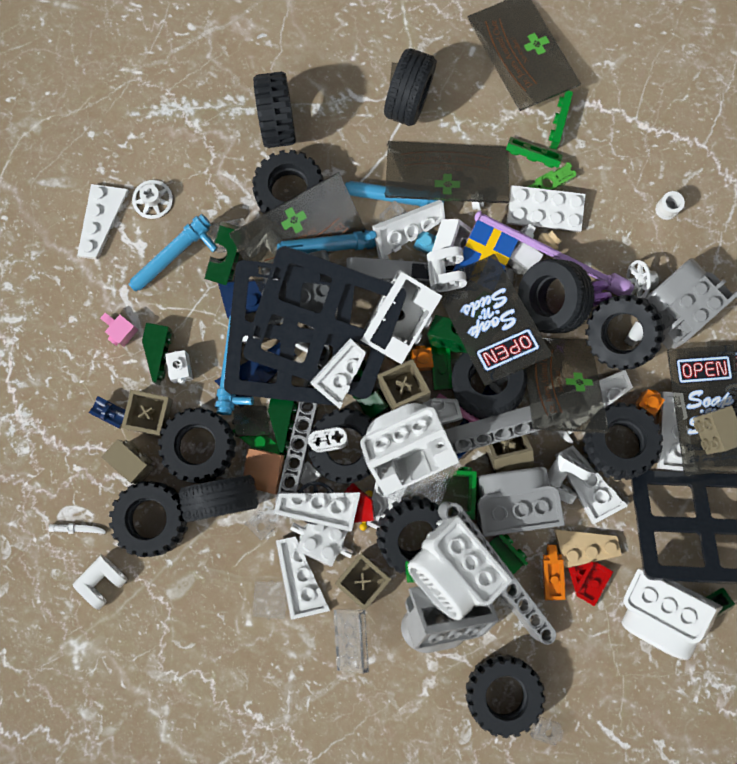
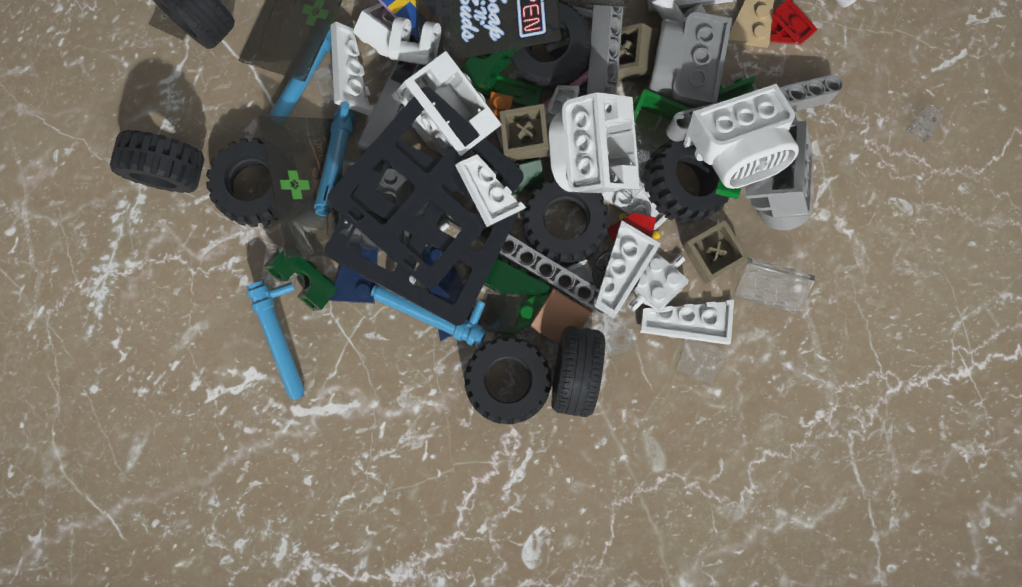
camera: 75 degrees left, 0 degrees up
(72, 528) = (549, 553): white piece -> none
(89, 579) = (612, 547): white connector -> none
(100, 214) = (195, 406): white wing -> none
(108, 412) = (434, 468): dark blue hips -> none
(119, 330) = (343, 427): bright pink brick -> none
(123, 519) = (602, 460): black tyre -> none
(128, 461) = (499, 462): dark tan brick -> none
(147, 412) = (451, 424): dark tan brick -> none
(151, 198) = (200, 342): white wheel -> none
(156, 344) = (378, 393): dark green slope -> none
(180, 374) = (417, 379): white head -> none
(331, 433) = (558, 224): white connector -> none
(425, 242) = (370, 60): medium azure plate -> none
(524, 715) = (901, 132): black tyre -> none
(553, 574) = (771, 57): orange hinge -> none

